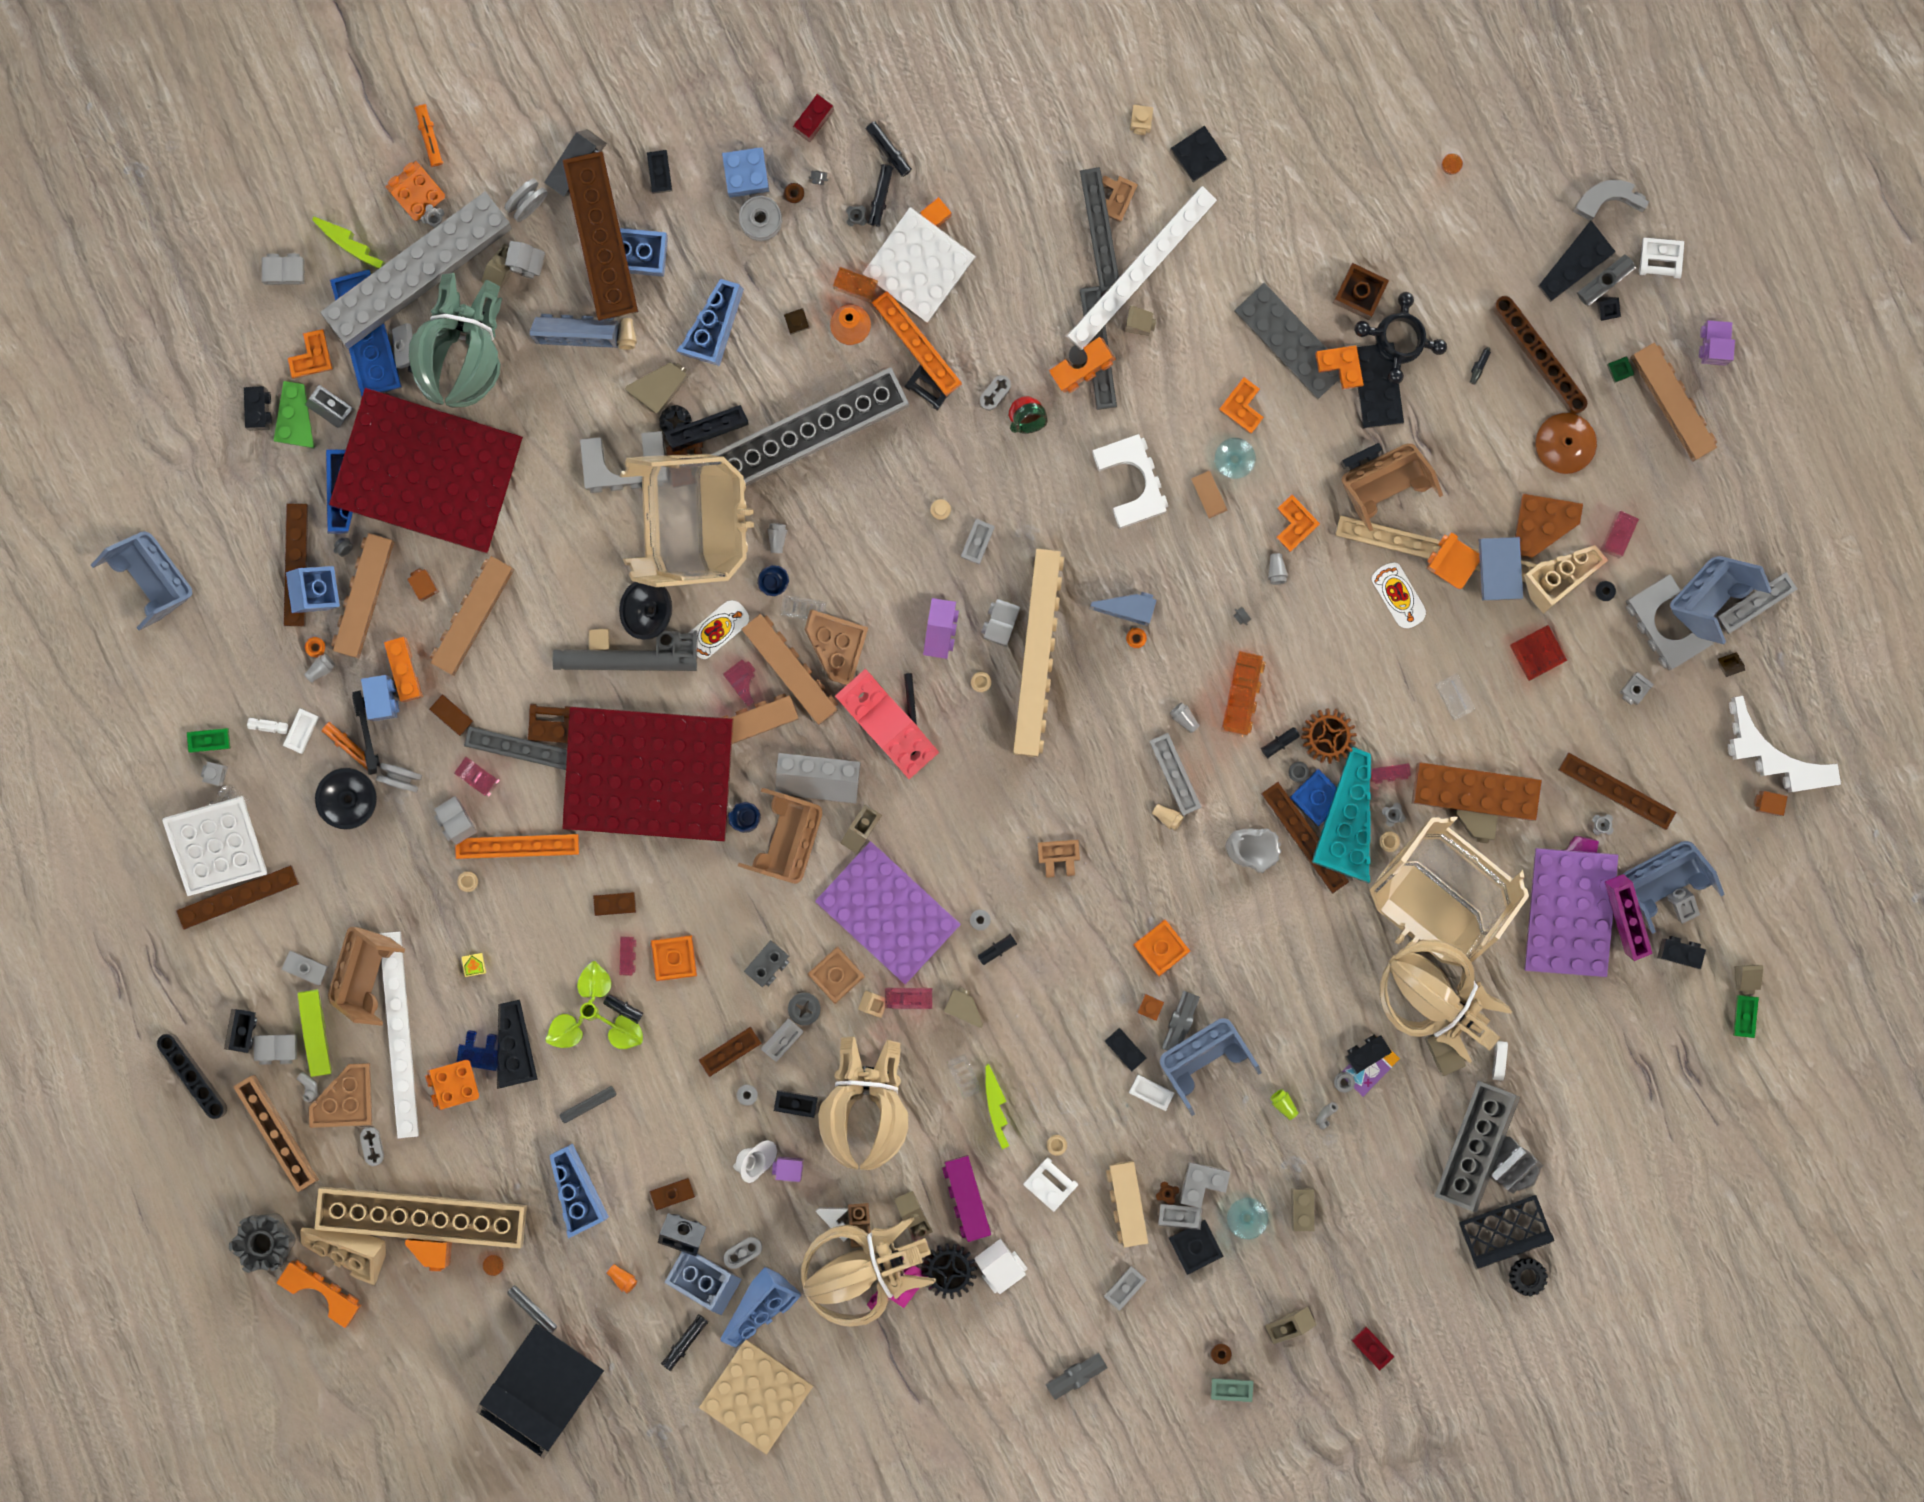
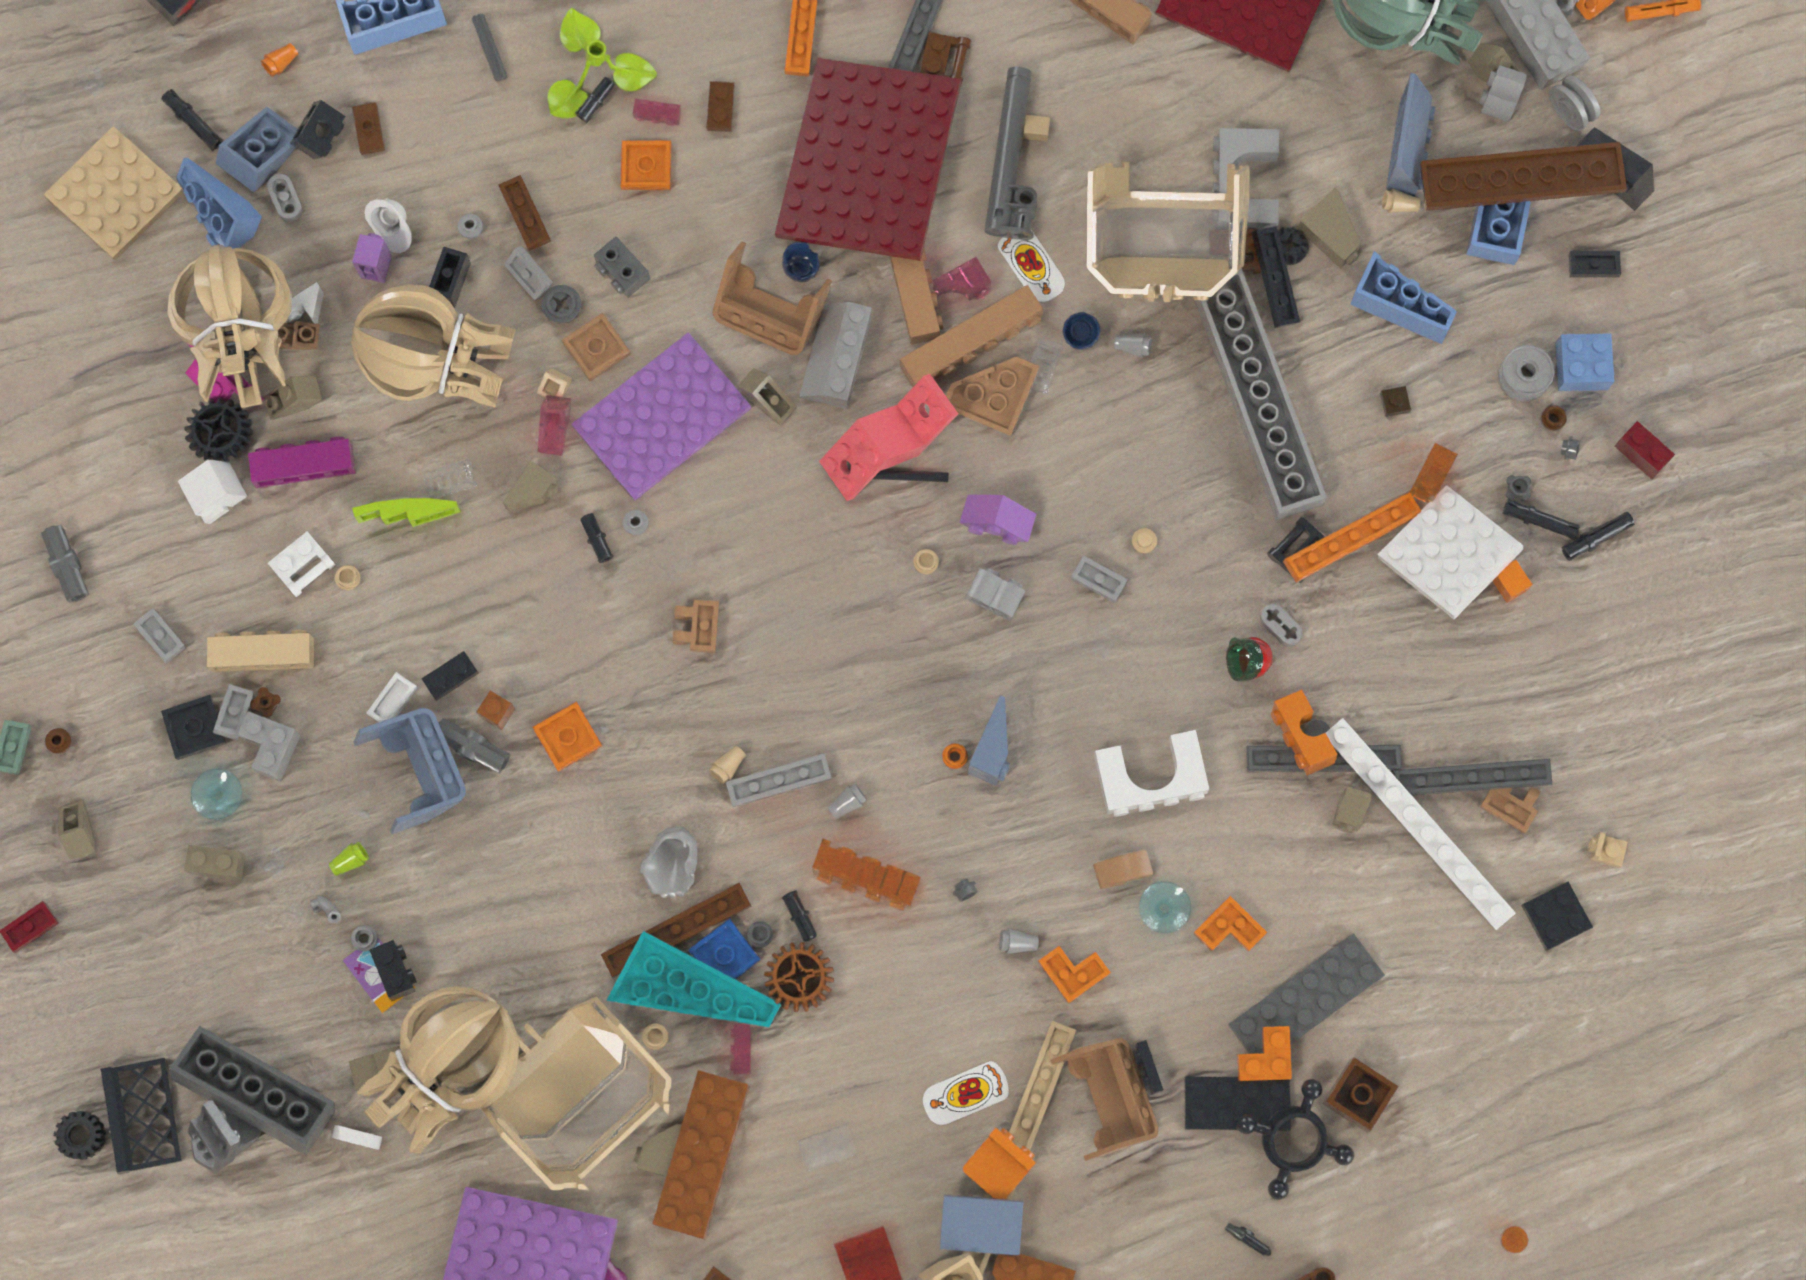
camera: 100 degrees right, 10 degrees down
(637, 610) = (1061, 178): black dish -> none
(850, 331) = (1385, 463): orange cone -> none
(1037, 650) = (950, 629): tan brick -> none
(1396, 808) = (682, 1042): light grey plate -> none

